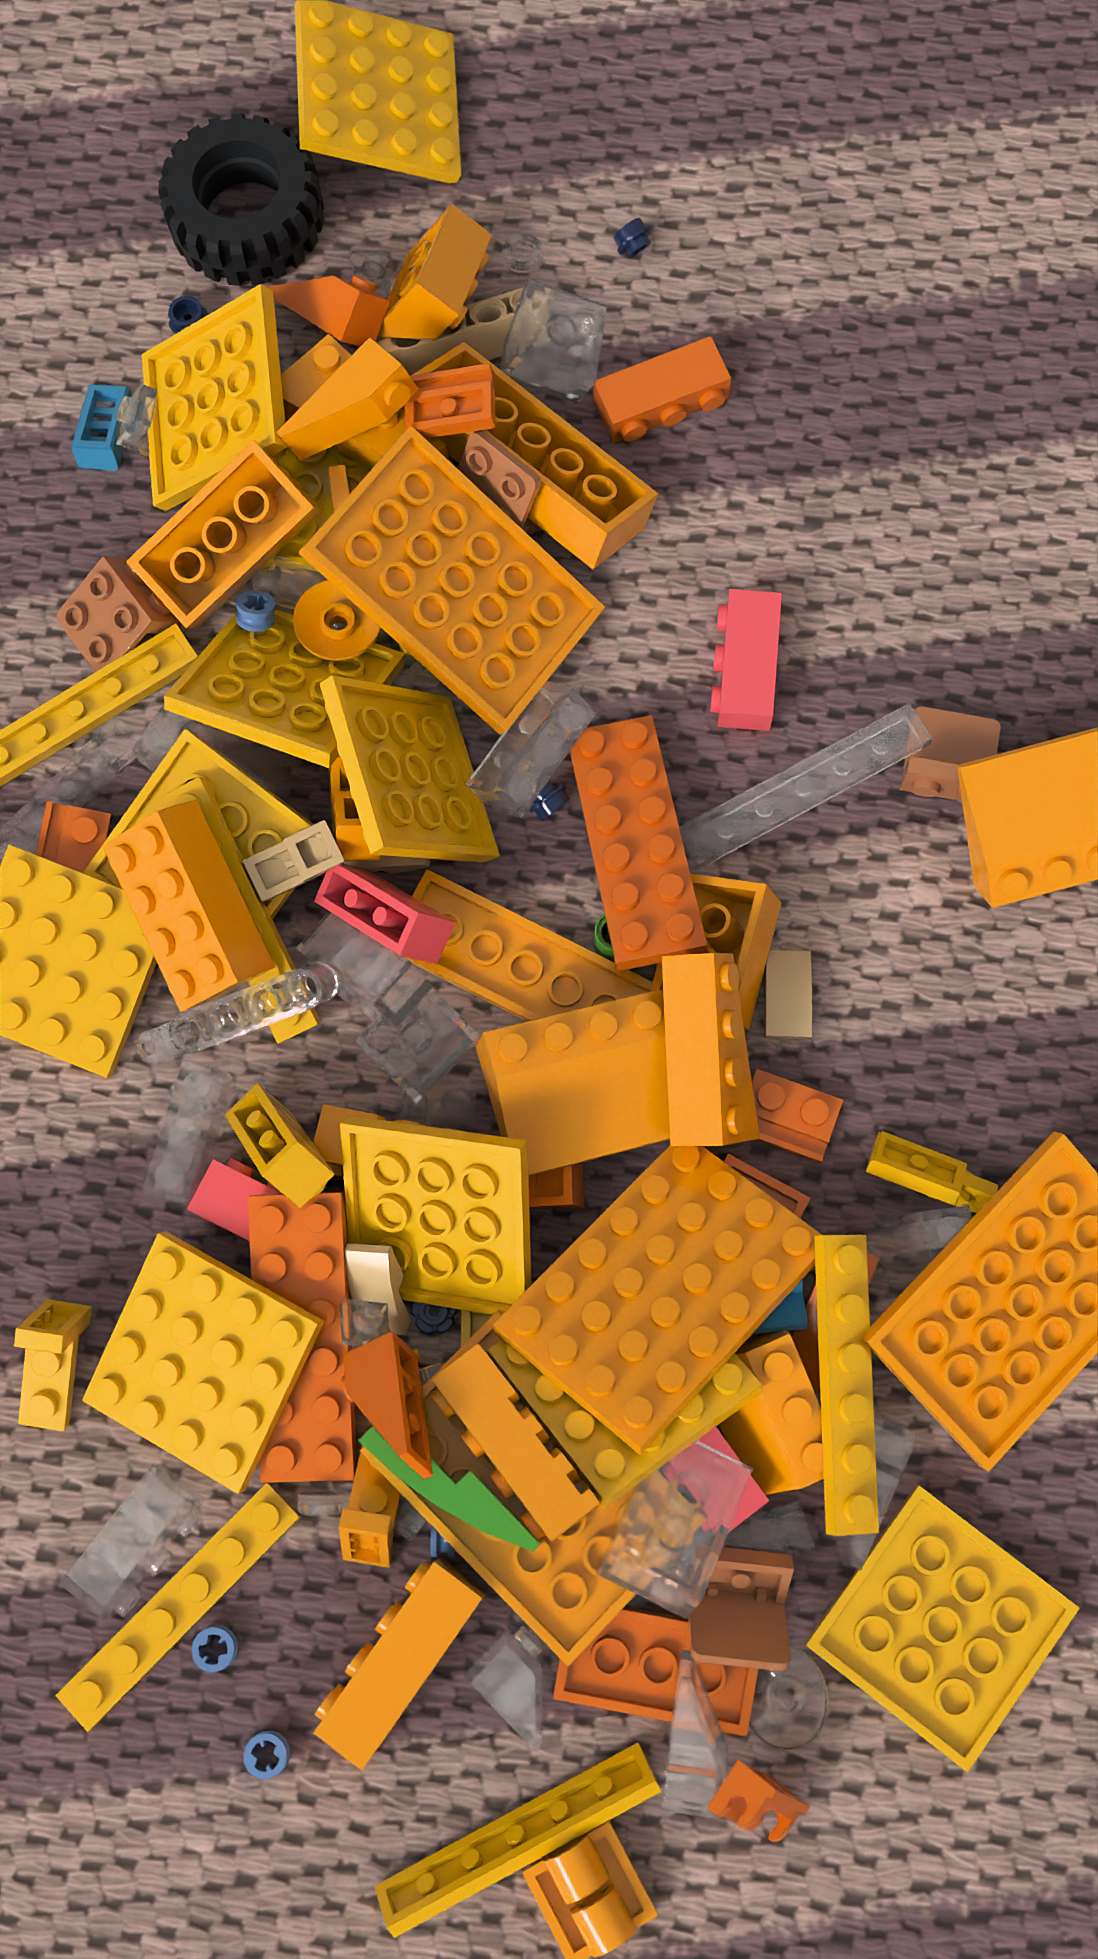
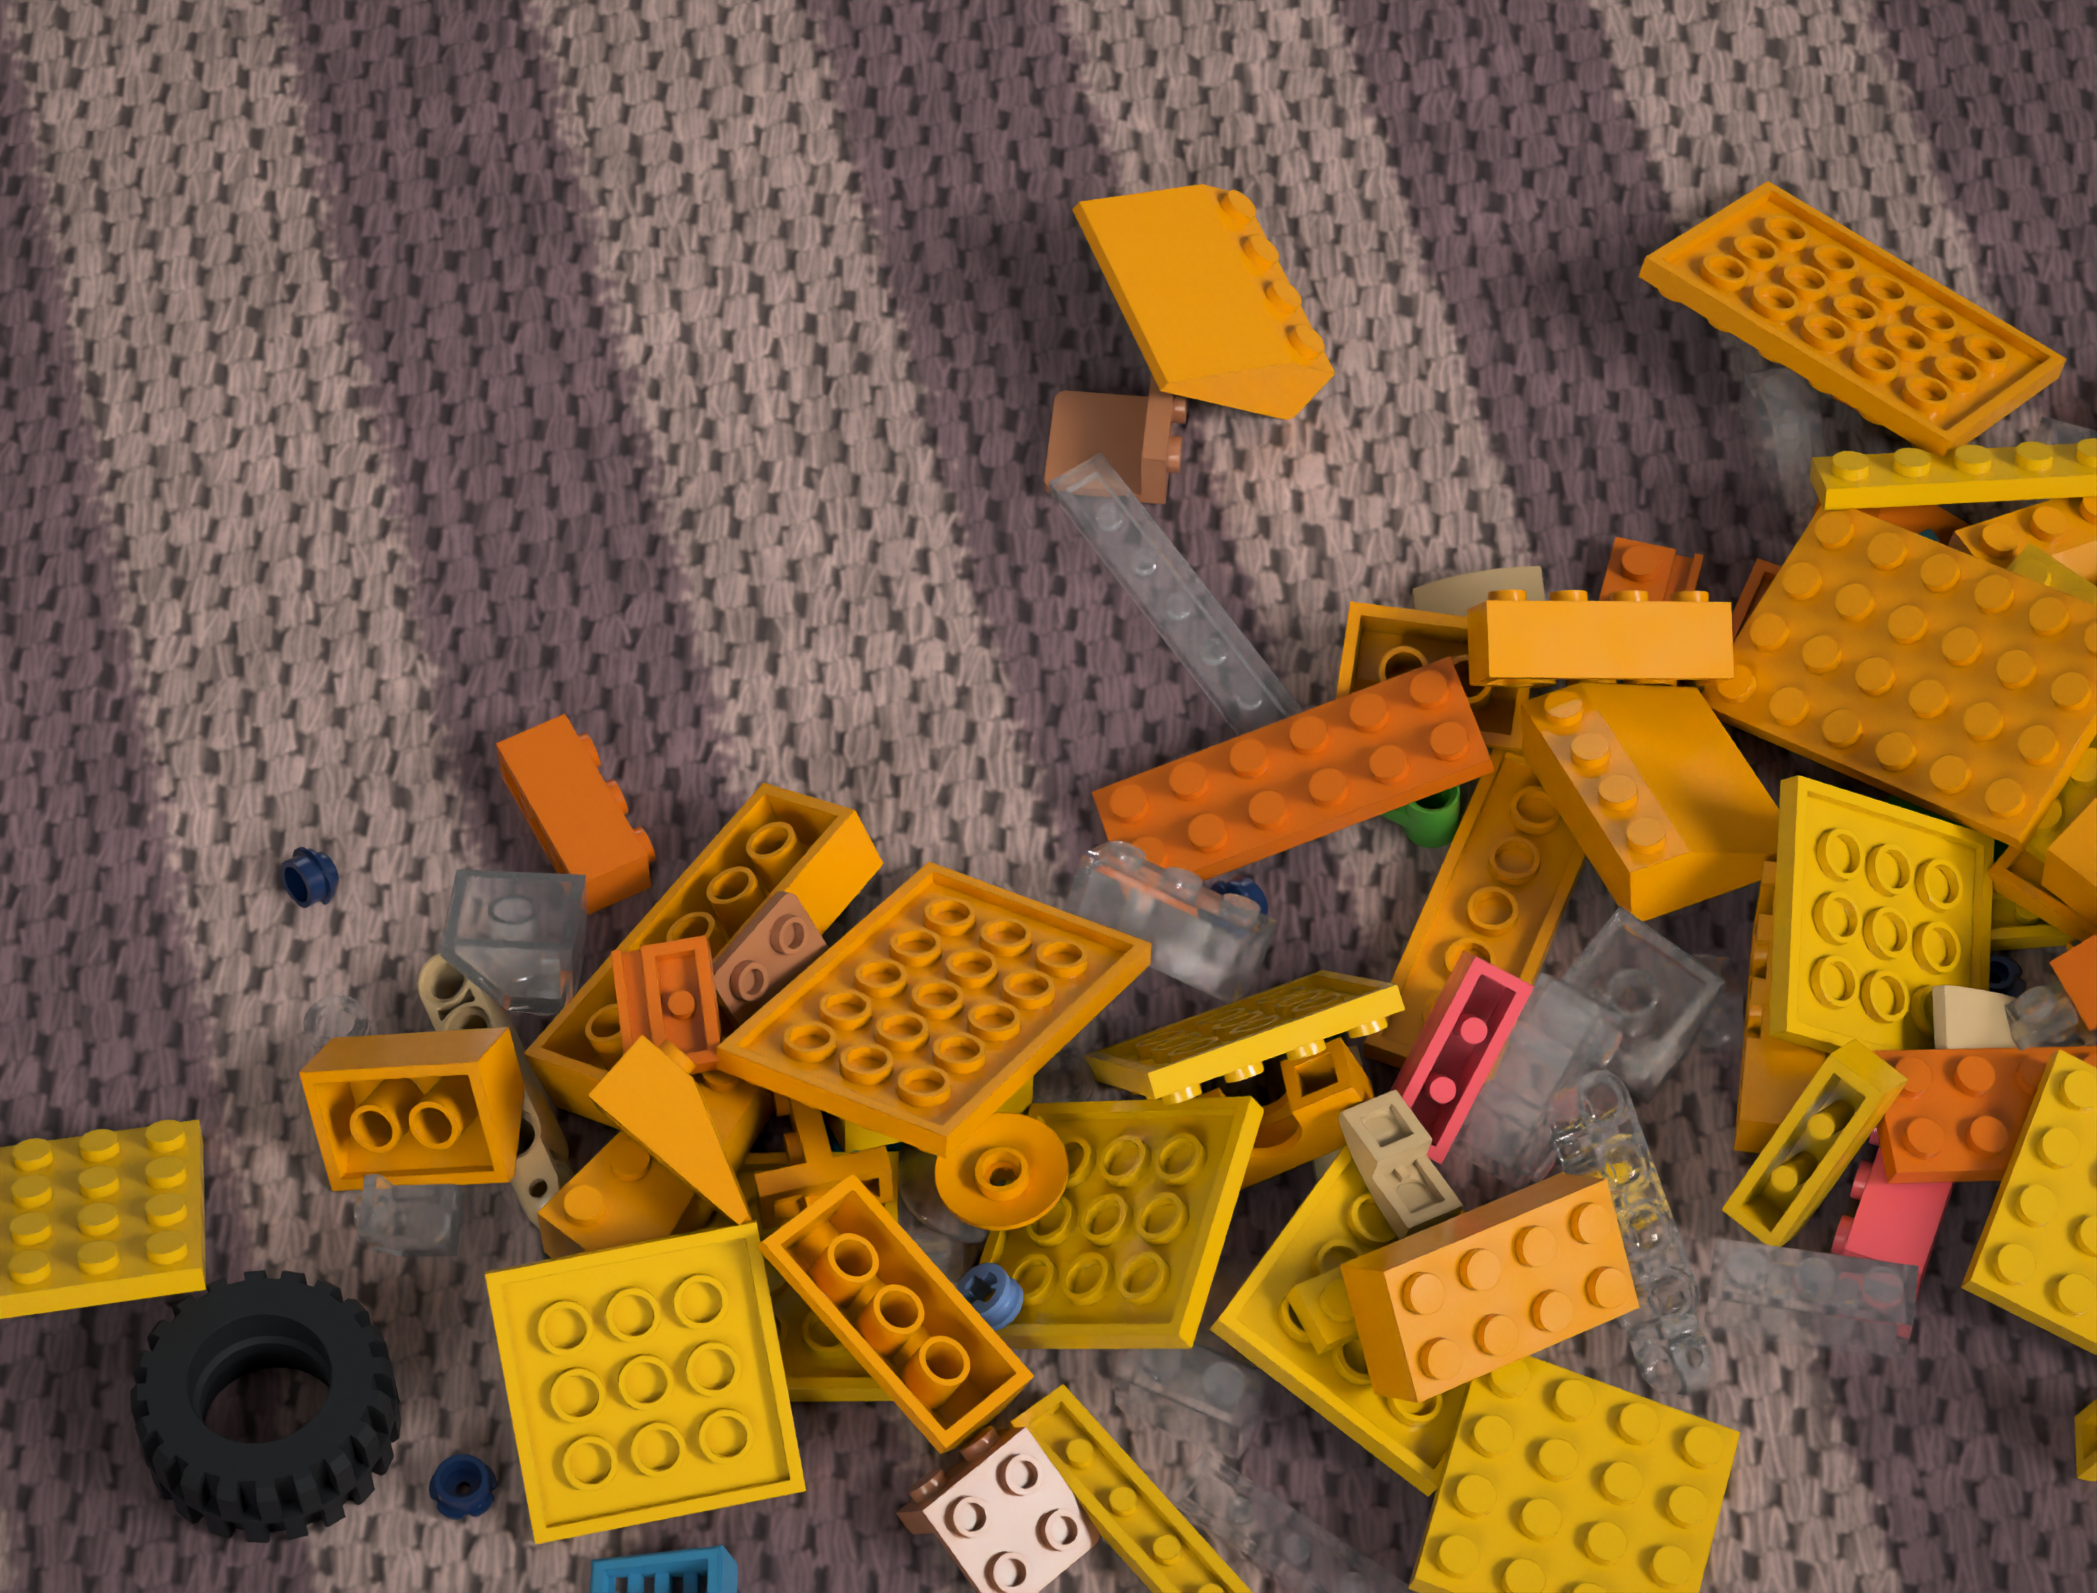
camera: 100 degrees left, 20 degrees down
(72, 834) = (1375, 1523): orange plate -> none
(135, 419) = (670, 1507): clear bracket -> none
(336, 305) = (473, 1226): orange slope -> none
(747, 659) = (997, 678): coral brick -> none
(928, 1172) = (1697, 439): yellow hinge -> none

